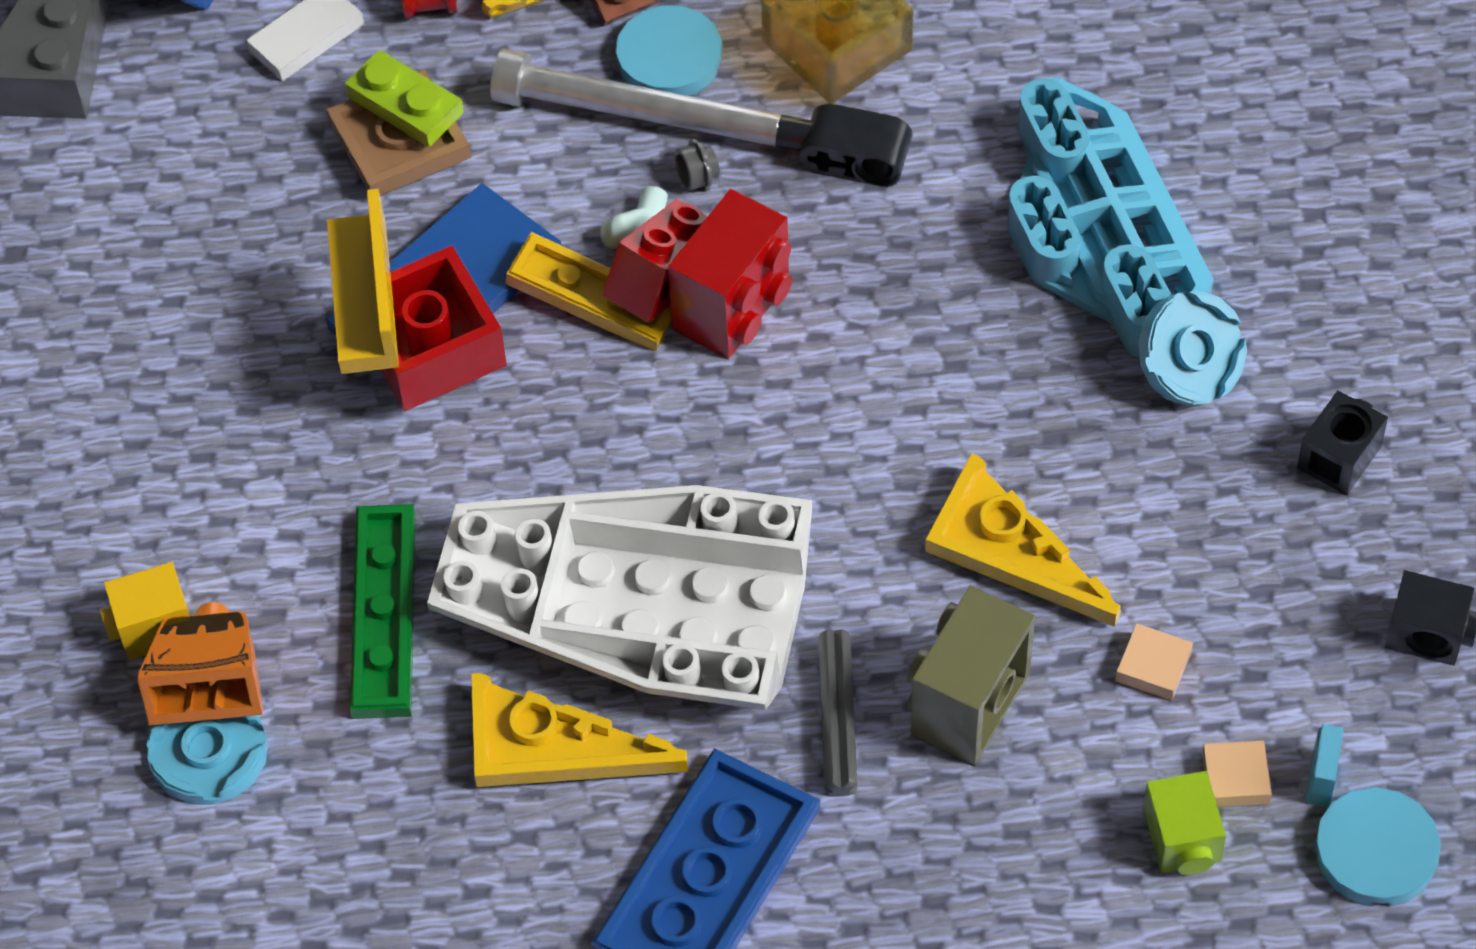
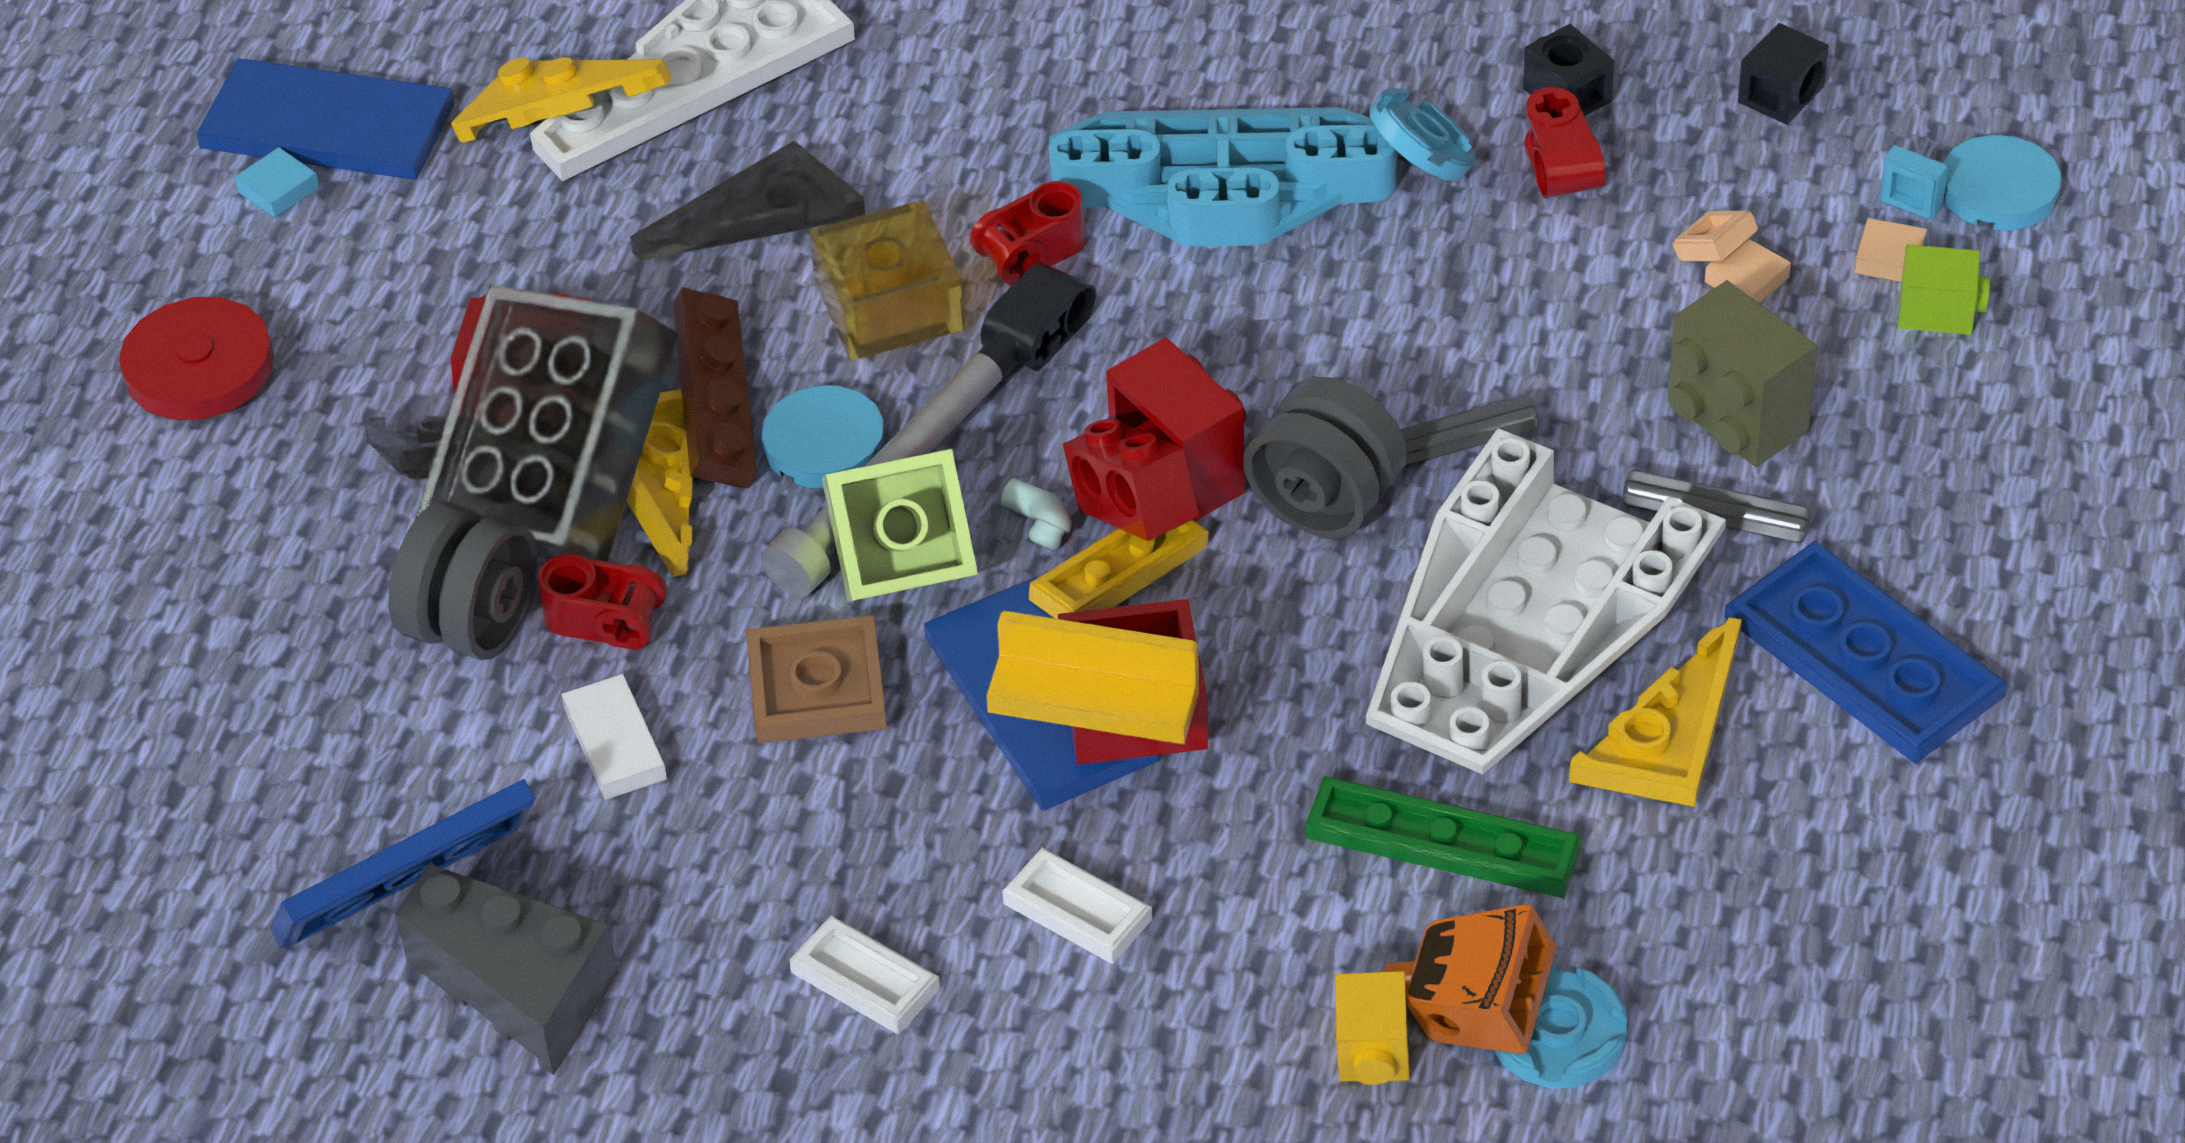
camera: 70 degrees left, 10 degrees down
(122, 267) = (864, 974): none -> white tile
(231, 381) = (1077, 905): none -> white tile
(404, 98) = (786, 648): lime plate -> none
(545, 120) = (899, 525): none -> yellowish green brick
(696, 165) = (994, 446): dark grey plate -> none
(735, 387) = (1325, 457): none -> dark grey wheel
(844, 484) = (1468, 429): none -> dark grey axle
(951, 111) = (1037, 228): none -> red piece
(998, 538) = (1573, 335): yellow wing -> none
(1180, 619) = (1715, 235): none -> light nougat tile
(1240, 462) = (1561, 144): none -> red piece

